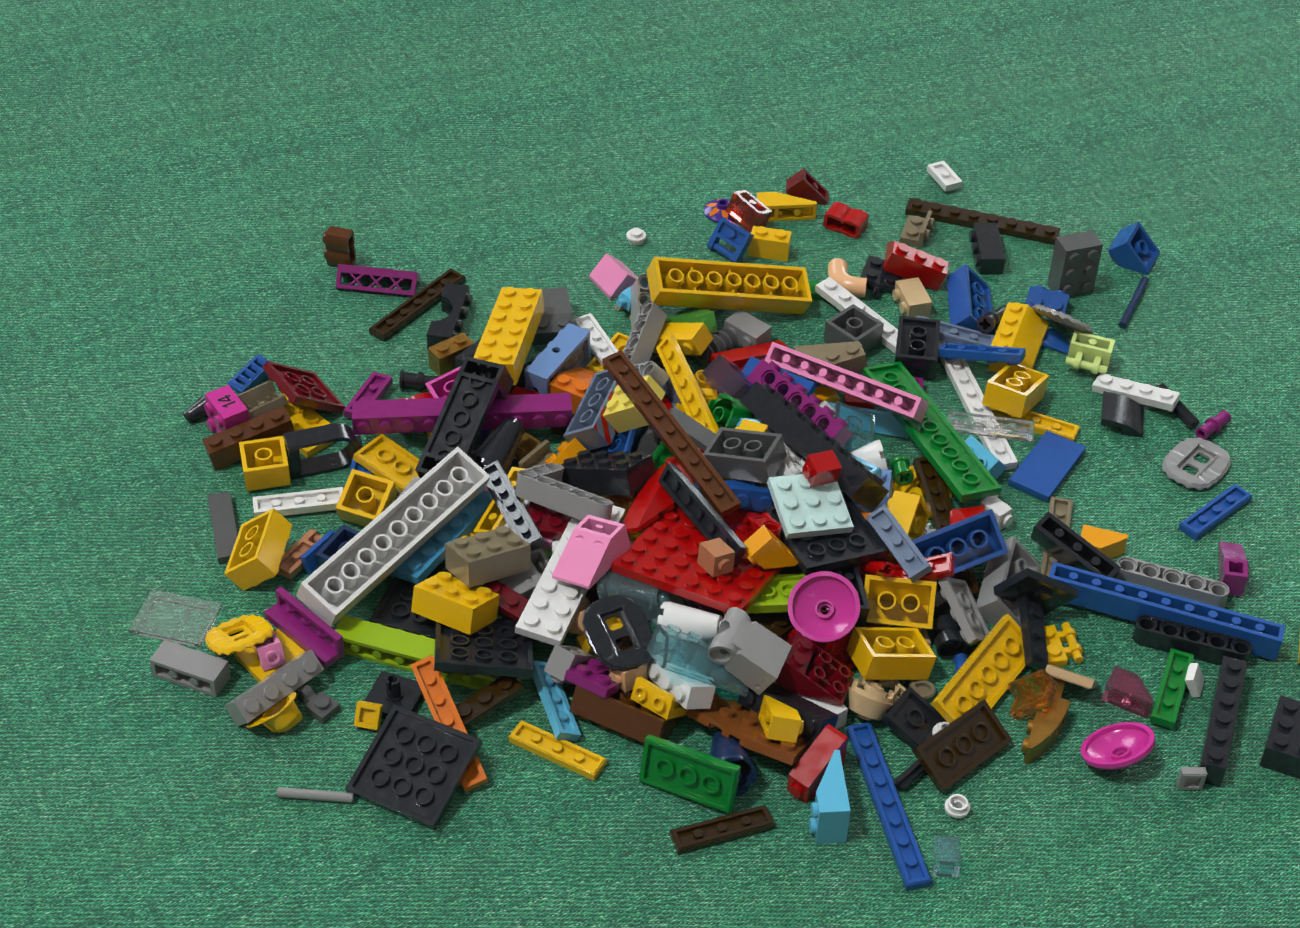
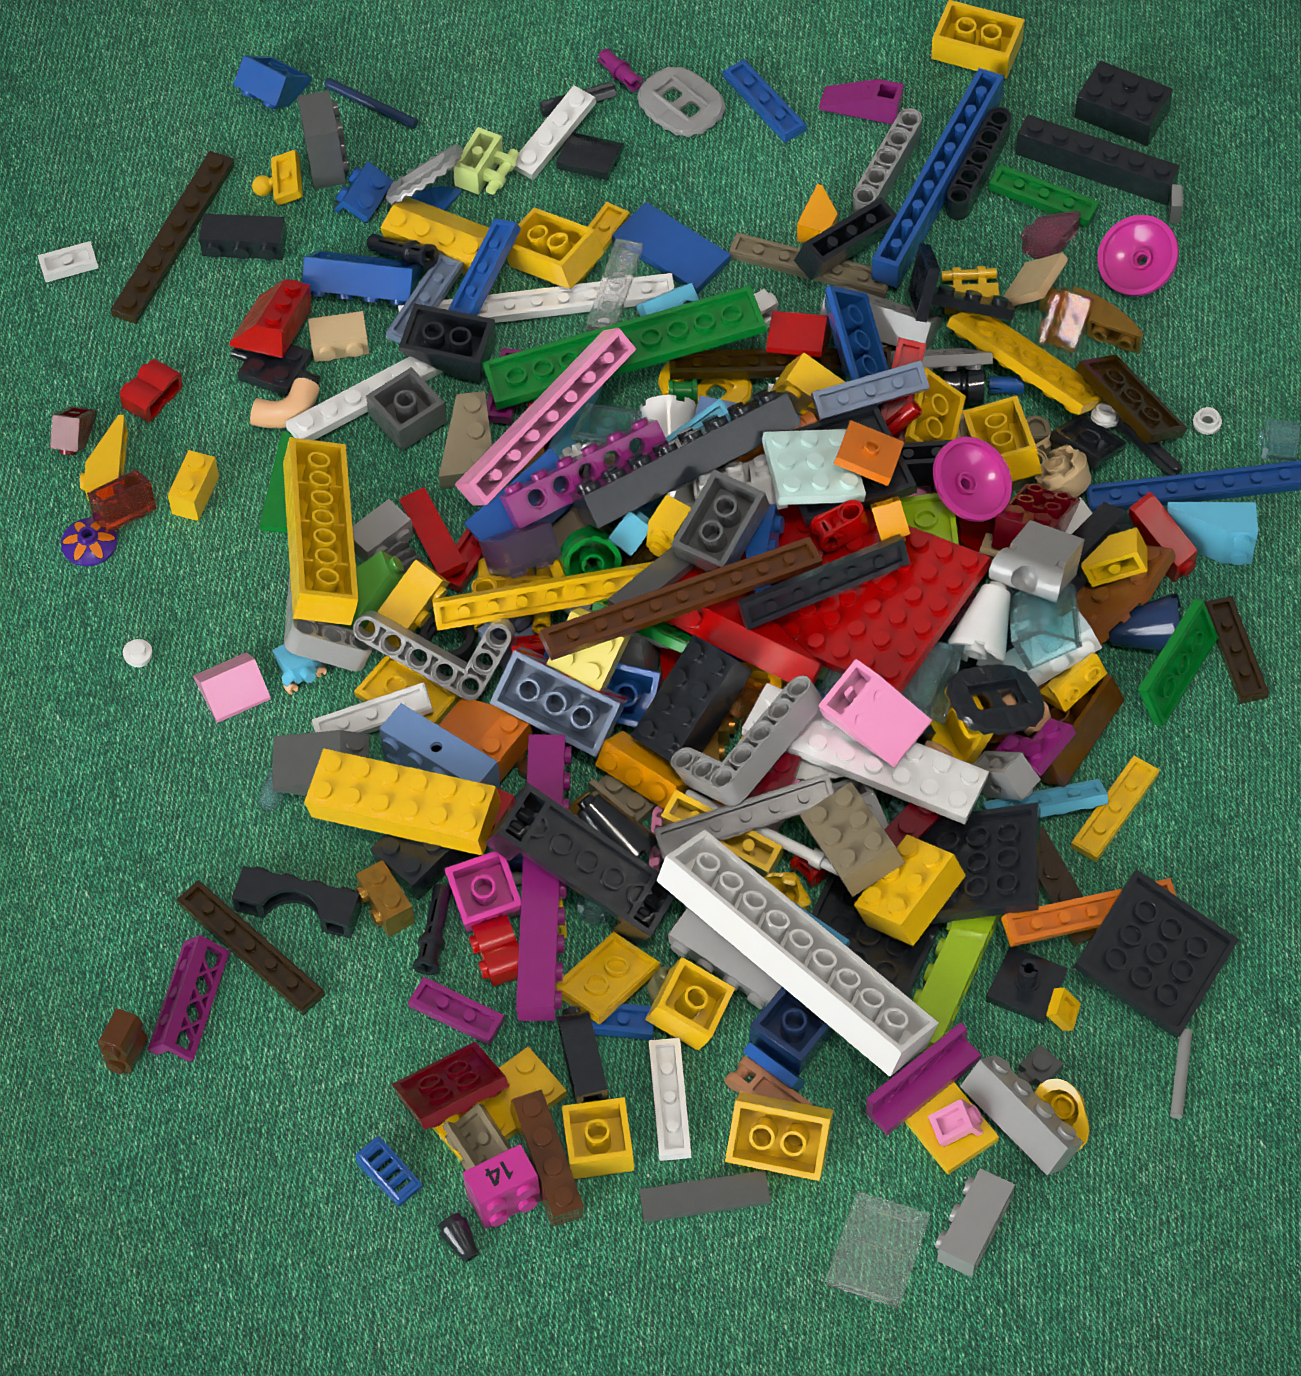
camera: 80 degrees left, 15 degrees up
(254, 632) = (917, 1141): yellow piece -> none
(716, 557) = (906, 571): nougat brick -> none
(733, 235) = (180, 524): blue plate -> none
(822, 468) = (779, 434): red brick -> none
(826, 532) = (869, 453): none -> orange plate
(917, 230) = (183, 311): dark tan bracket -> none
(1040, 263) = (285, 179): none -> yellow plate
(1194, 680) = (1036, 170): white tile -> none

